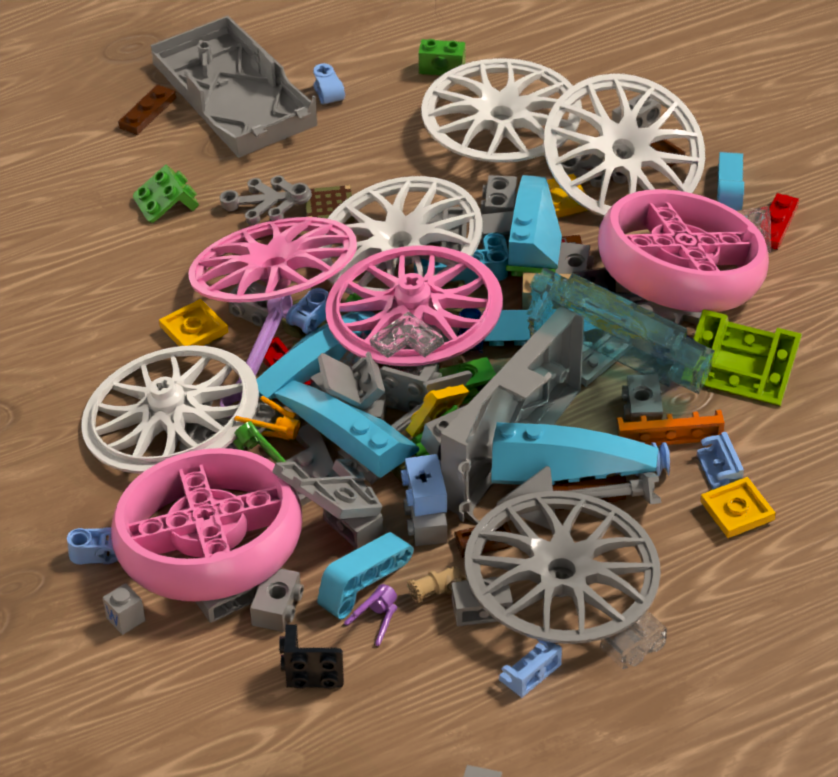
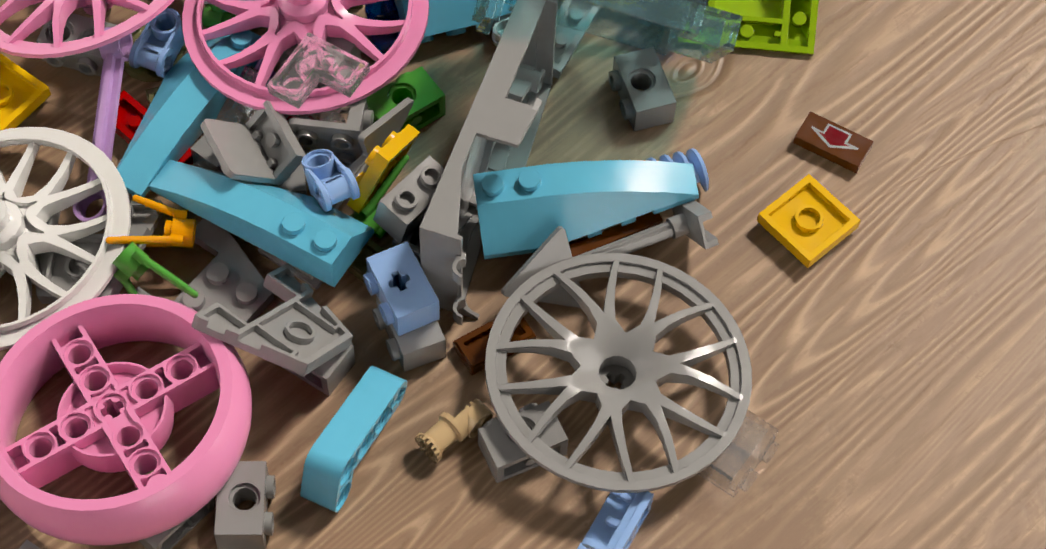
camera: 20 degrees left, 15 degrees up
(380, 601) = (384, 475): medium lavender plant -> none
(396, 407) = (328, 178): none -> light blue piece
(672, 430) = (689, 125): orange hinge -> none
(720, 461) = (767, 159): light blue hinge -> none
(775, 462) = (833, 142): none -> reddish brown tile

